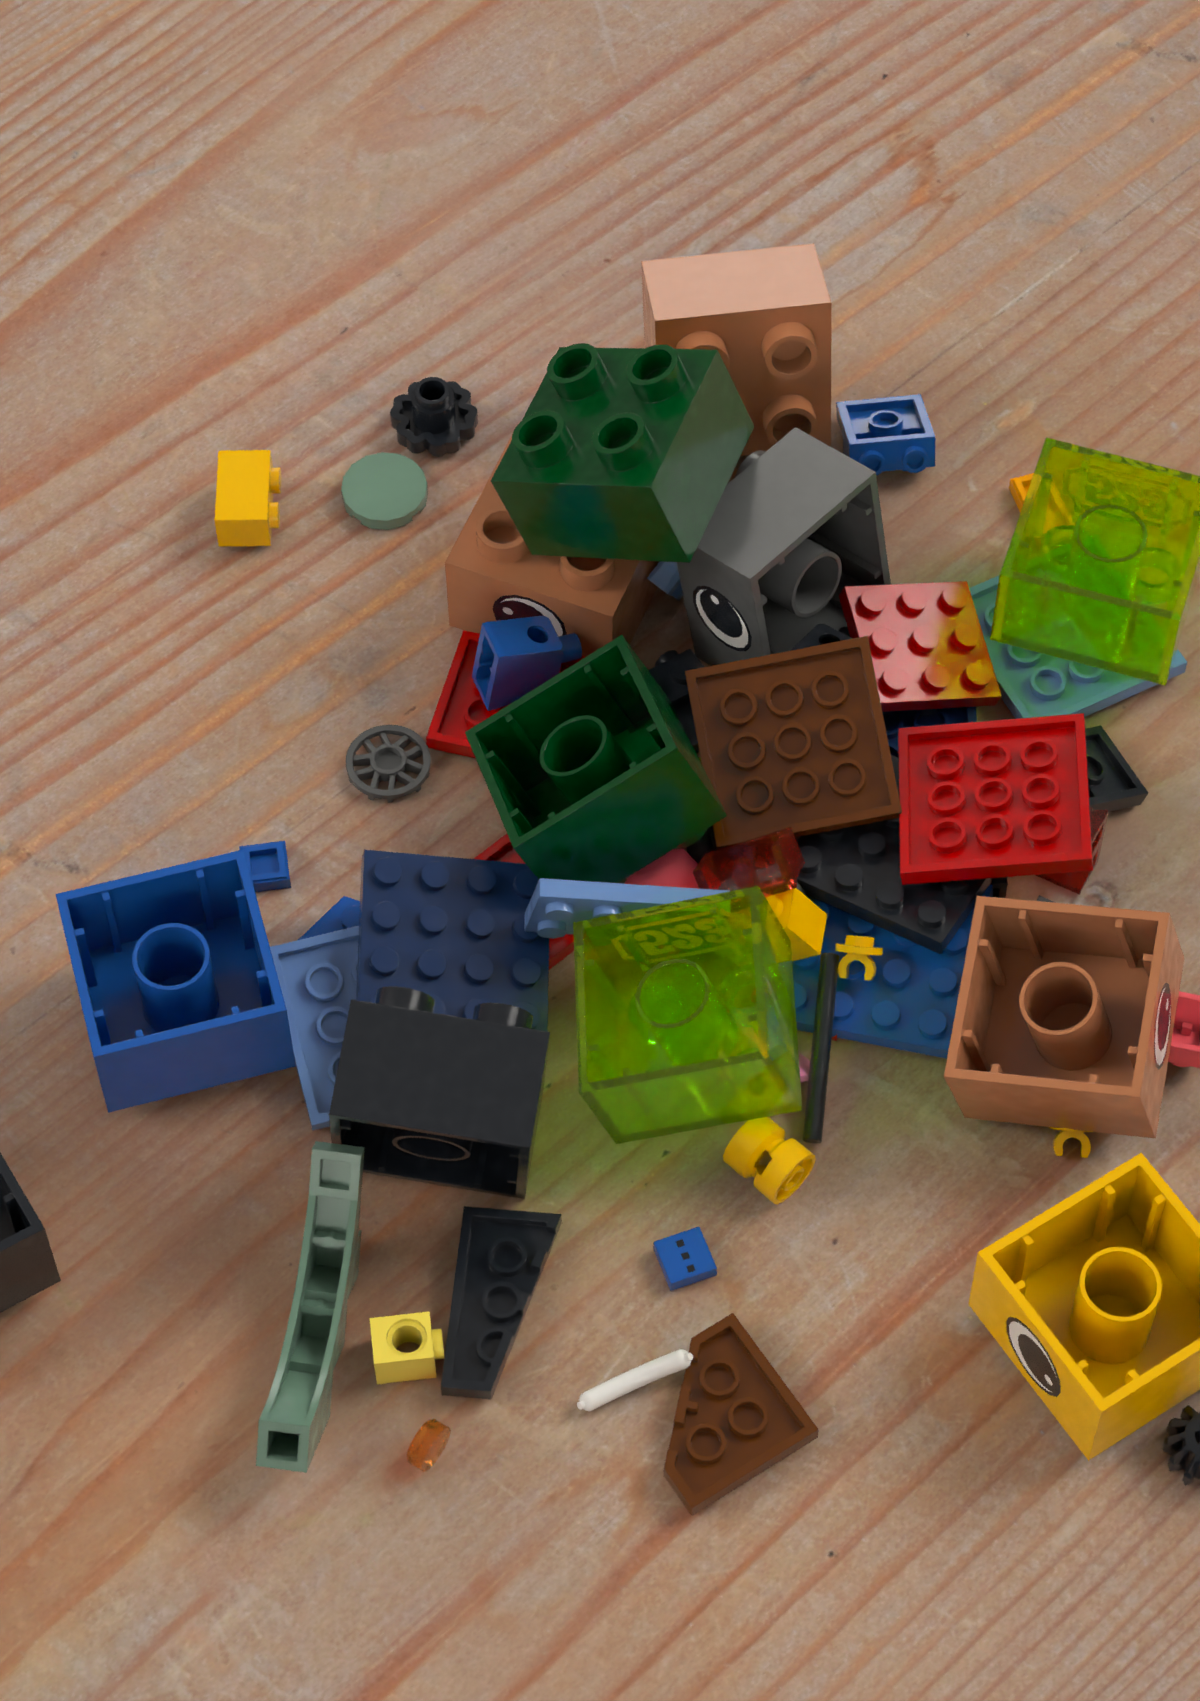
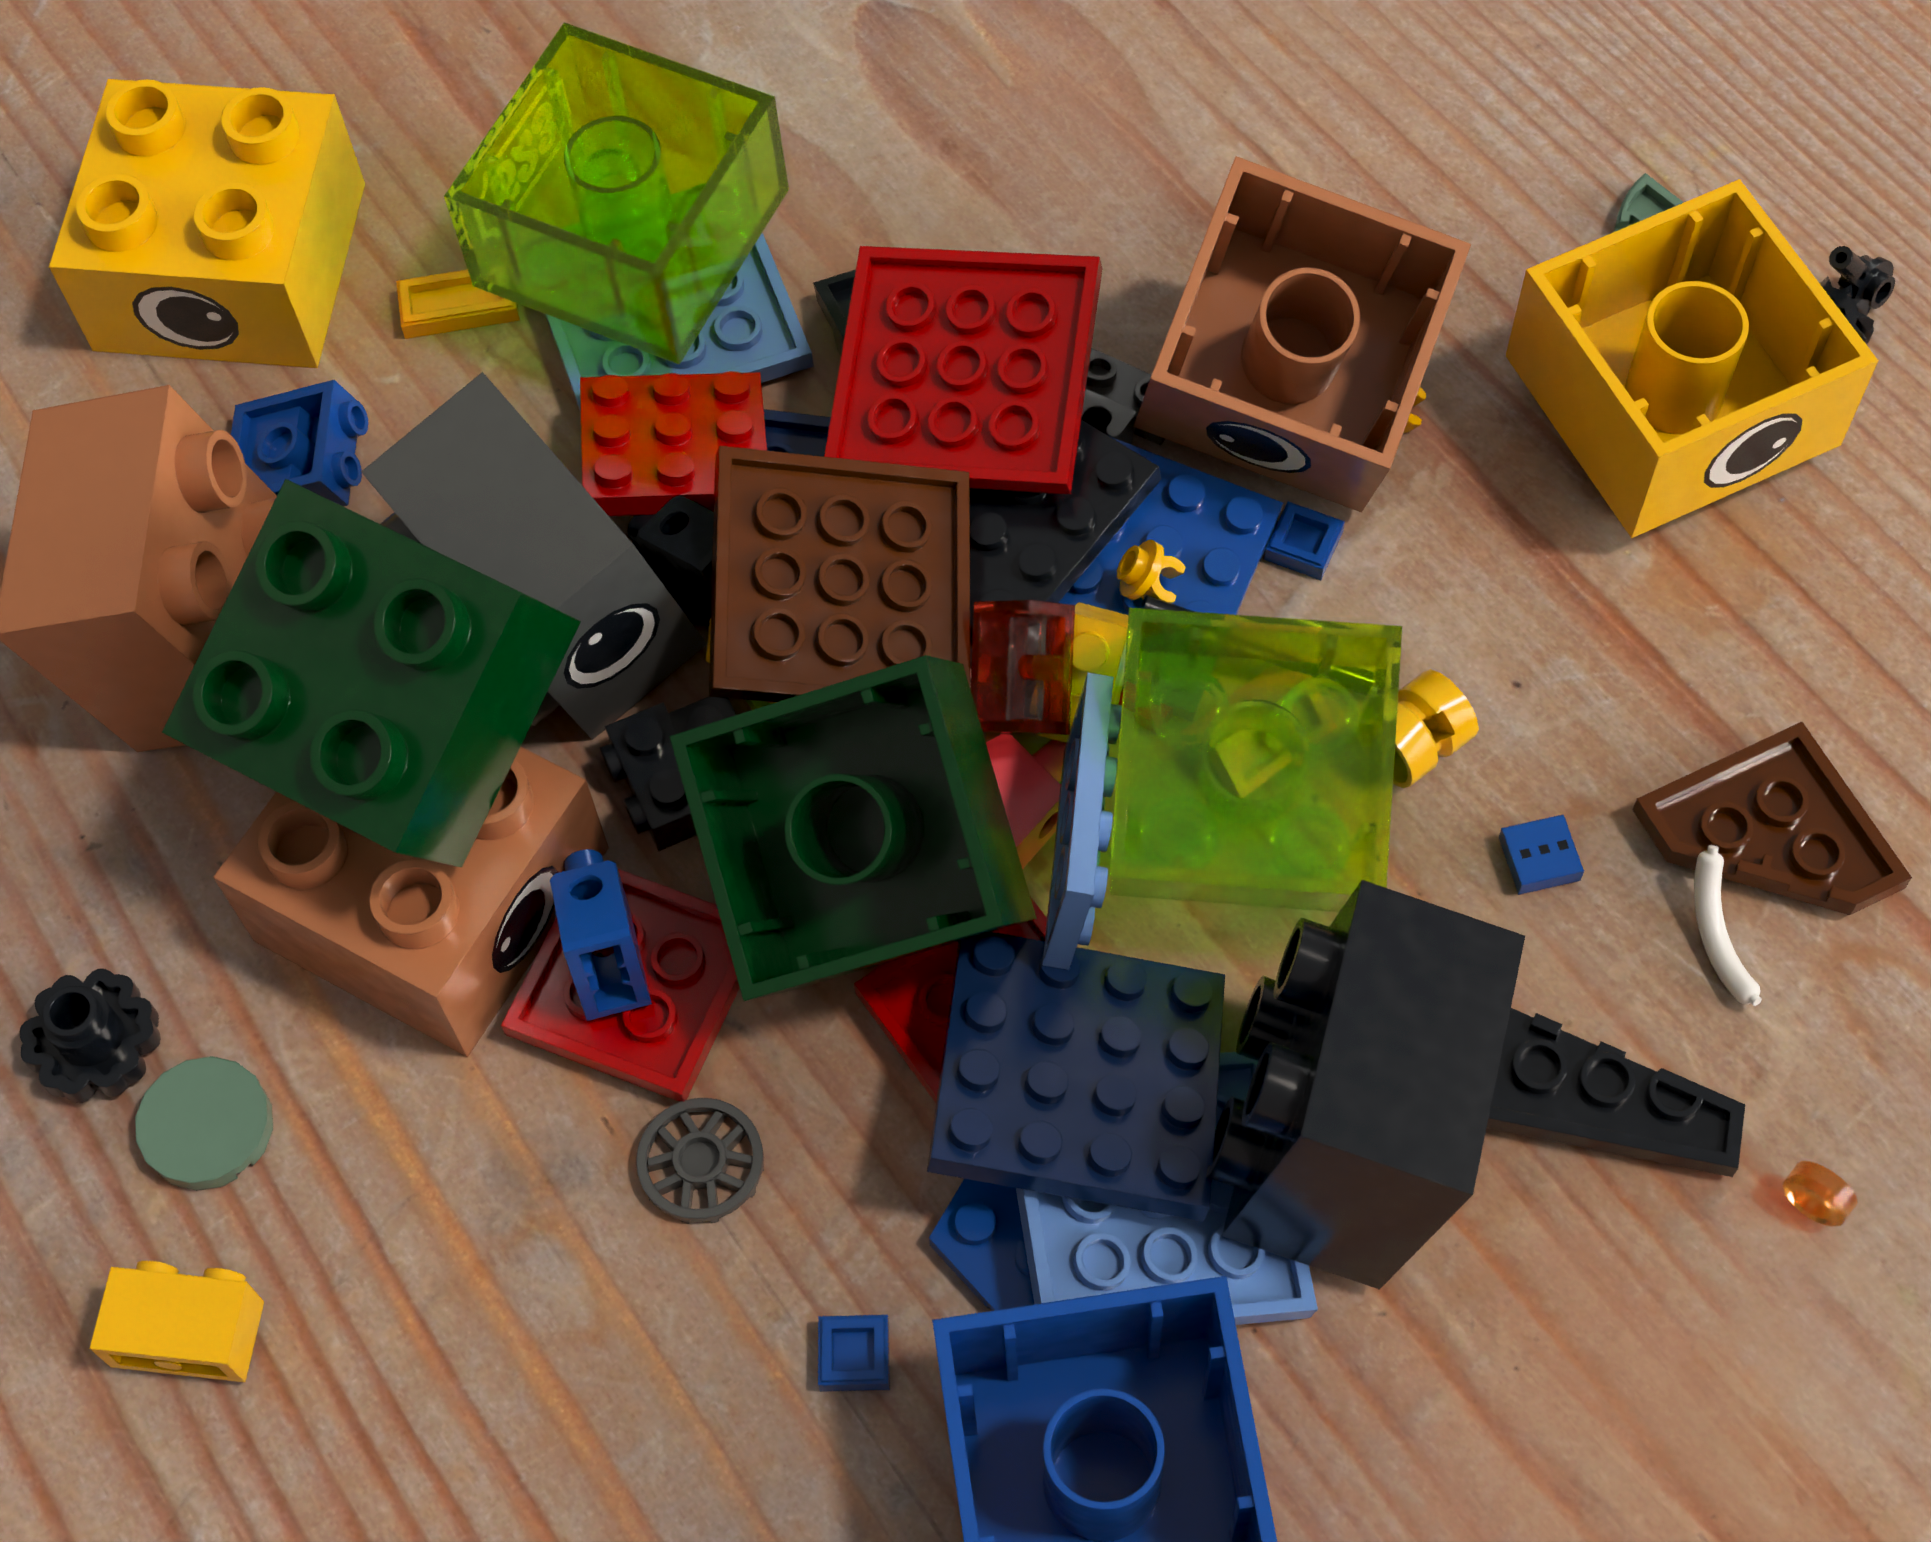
camera: 80 degrees left, 5 degrees up
(317, 1320) = (1669, 1326): sand green arch -> none
(394, 1330) = (1671, 1240): light yellow brick -> none
(929, 1085) = (1304, 540): none -> blue tile
(1057, 340) = (210, 223): none -> yellow brick

